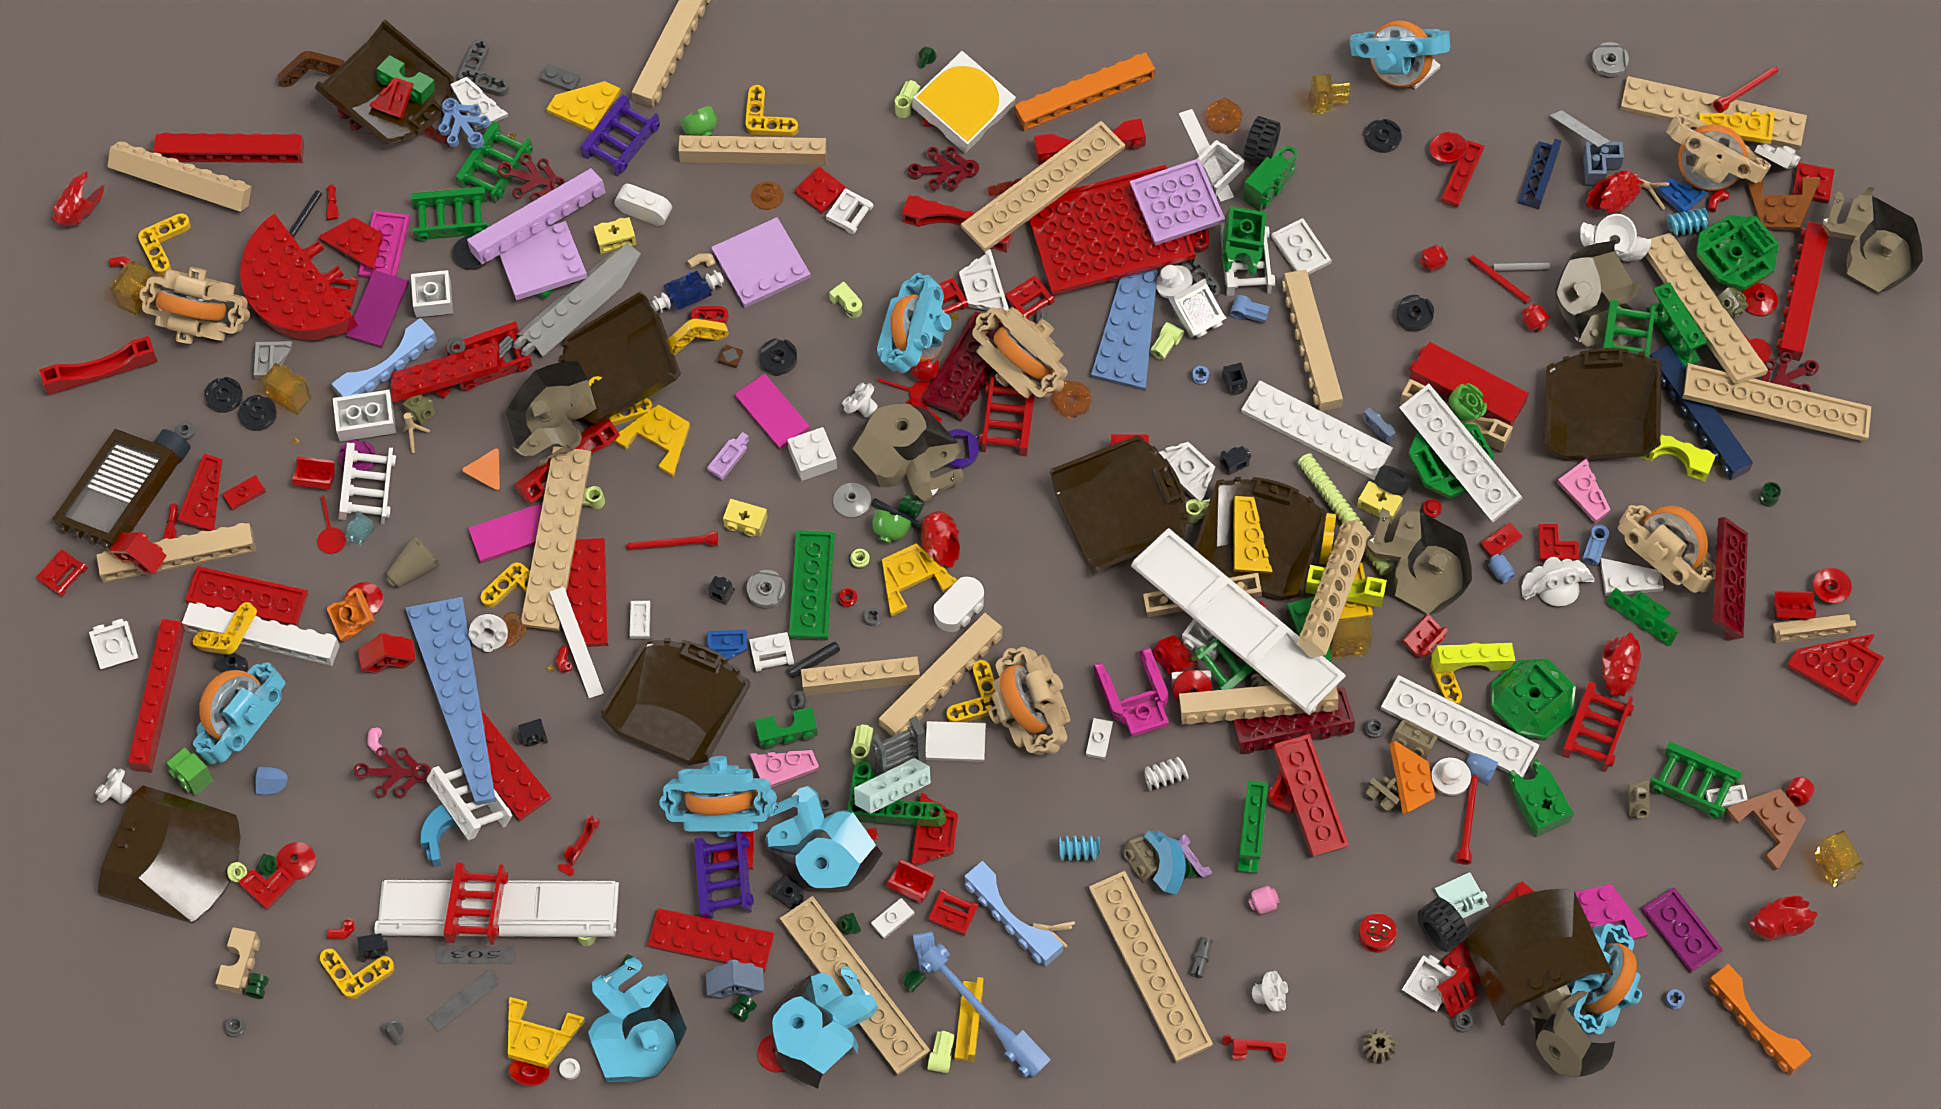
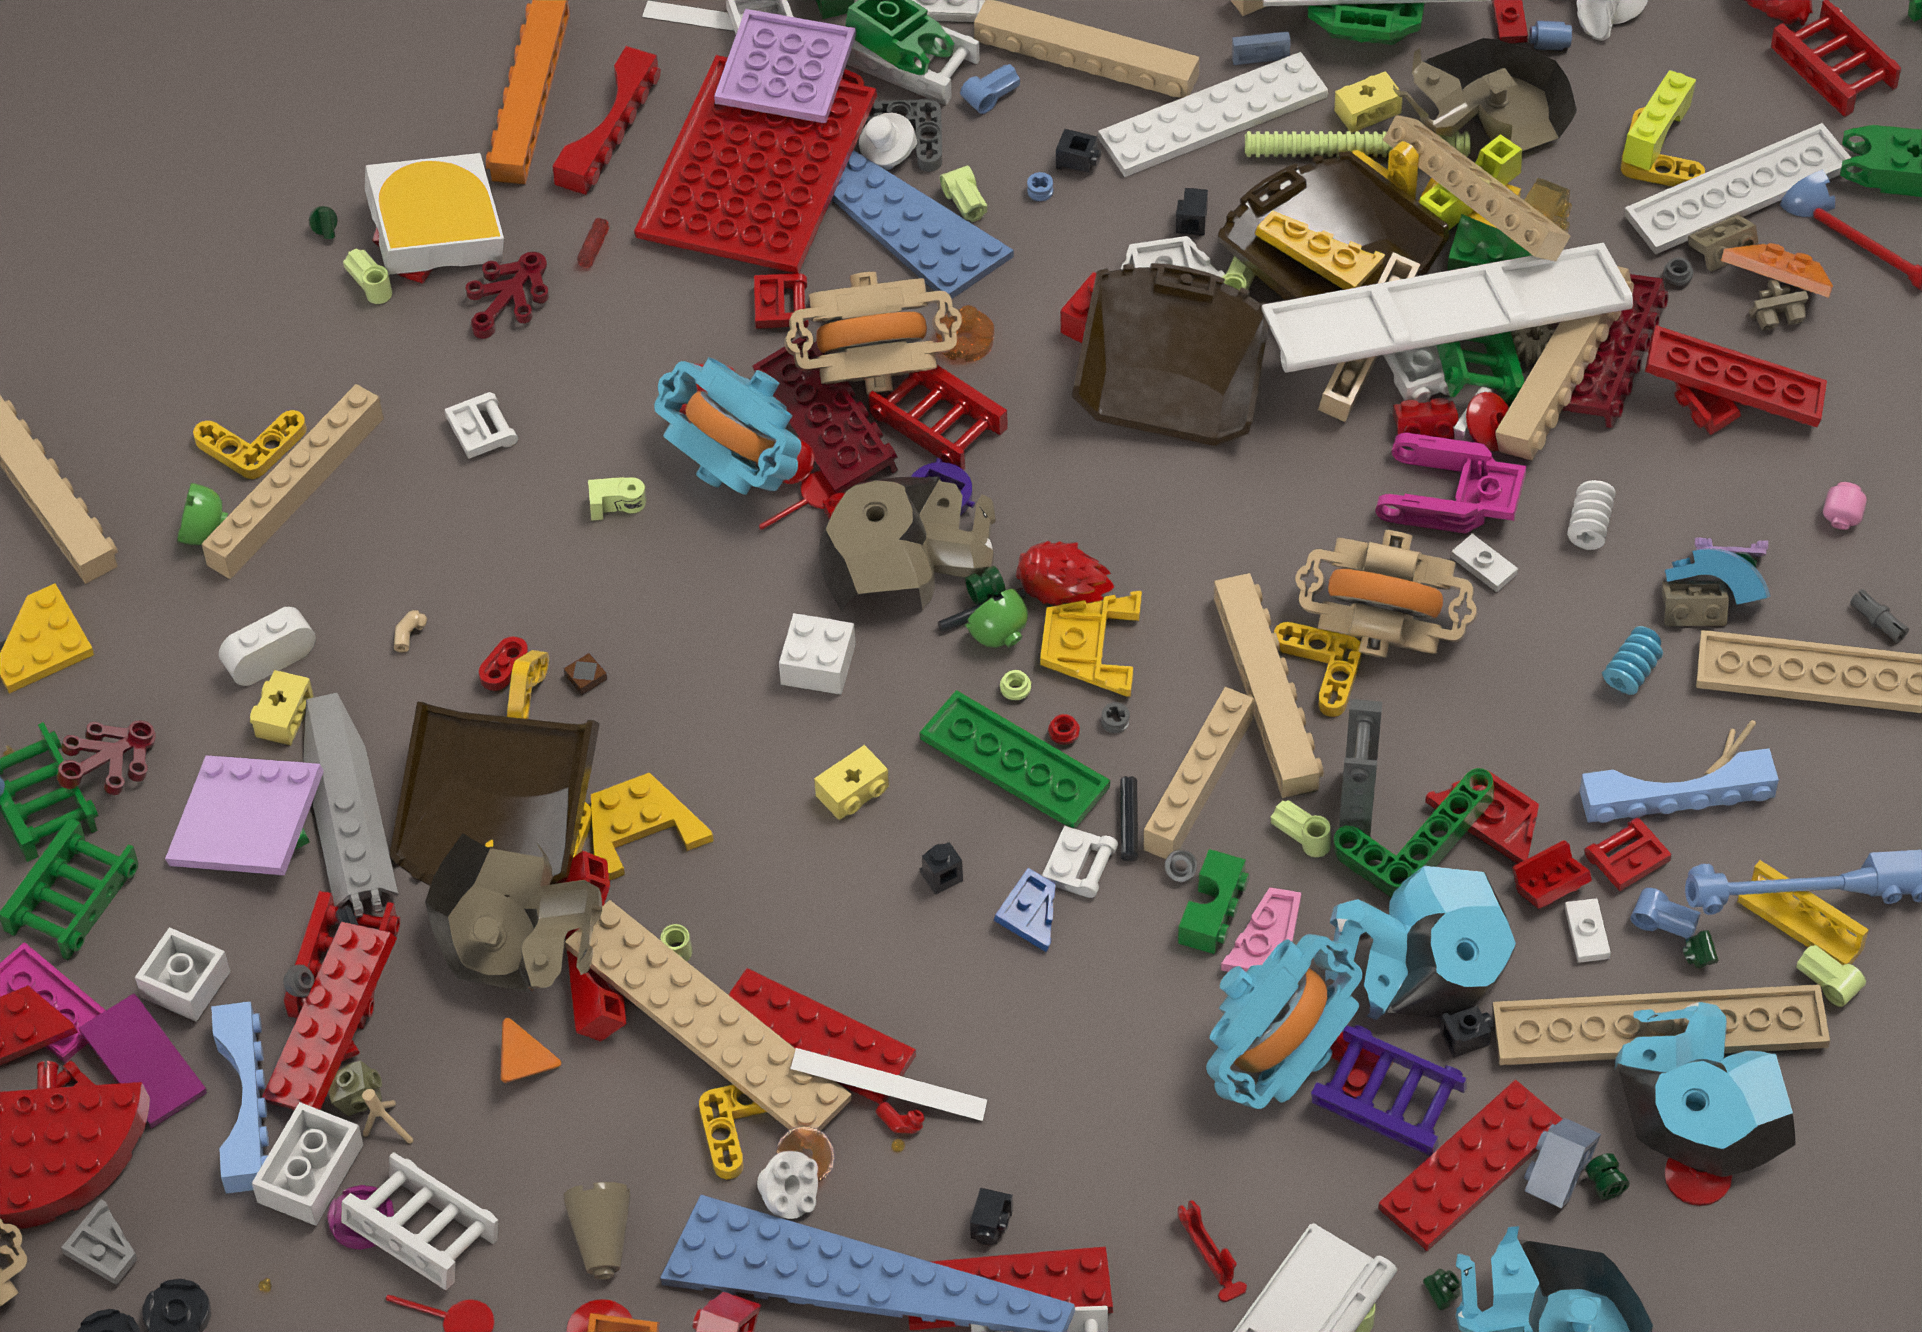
camera: 55 degrees left, 10 degrees down
(286, 388) = (179, 1240): clear yellow brick -> none
(314, 473) = (344, 1282): red bracket -> none
(359, 529) = (484, 1269): clear light blue brick -> none
(464, 257) = (152, 897): black tile -> none
(506, 533) = (642, 1084): dark pink tile -> none
(536, 216) = (173, 782): lavender brick -> none
(611, 121) = (110, 640): dark purple fence -> none
(640, 620) = (910, 991): white plate -> none
(676, 699) = (1081, 1003): dark brown windscreen -> none
(687, 290) = (444, 663): clear blue plate -> none
(710, 538) = (850, 839): red piece -> none
(728, 456) = (741, 754): lavender hinge -> none
(761, 262) = (469, 565): lavender plate -> none
(766, 599) = (983, 832): light grey plate -> none
(768, 201) = (368, 515): clear orange piece -> none
(772, 411) = (709, 670): dark pink tile -> none
(779, 347) = (633, 632): black plate -> none
(820, 190) = (418, 442): red plate -> none
(849, 924) = (1562, 983): dark green plate -> none
(852, 507) = (917, 661): light grey dish -> none
(861, 400) = (781, 555): white plate -> none
(892, 785) = (1403, 812): light aqua brick -> none
(924, 212) = (650, 288): red arch -> none
(955, 741) = (1397, 715): white tile -> none
(959, 604) = (1175, 608): white brick -> none
(982, 284) = (720, 337): white wing -> none
(1043, 186) = (639, 192): tan plate -> none
(1197, 309) = (950, 133): white window -> none
(1252, 827) = (1754, 440): green fence -> none
(1392, 480) = (1351, 69): black tyre -> none
(1424, 637) = (1591, 155): bracket -> none
(1432, 508) = (1407, 57): red plate -> none
(1451, 776) = (1801, 231): white plate -> none
(1530, 715) = (1750, 96): green piece -> none

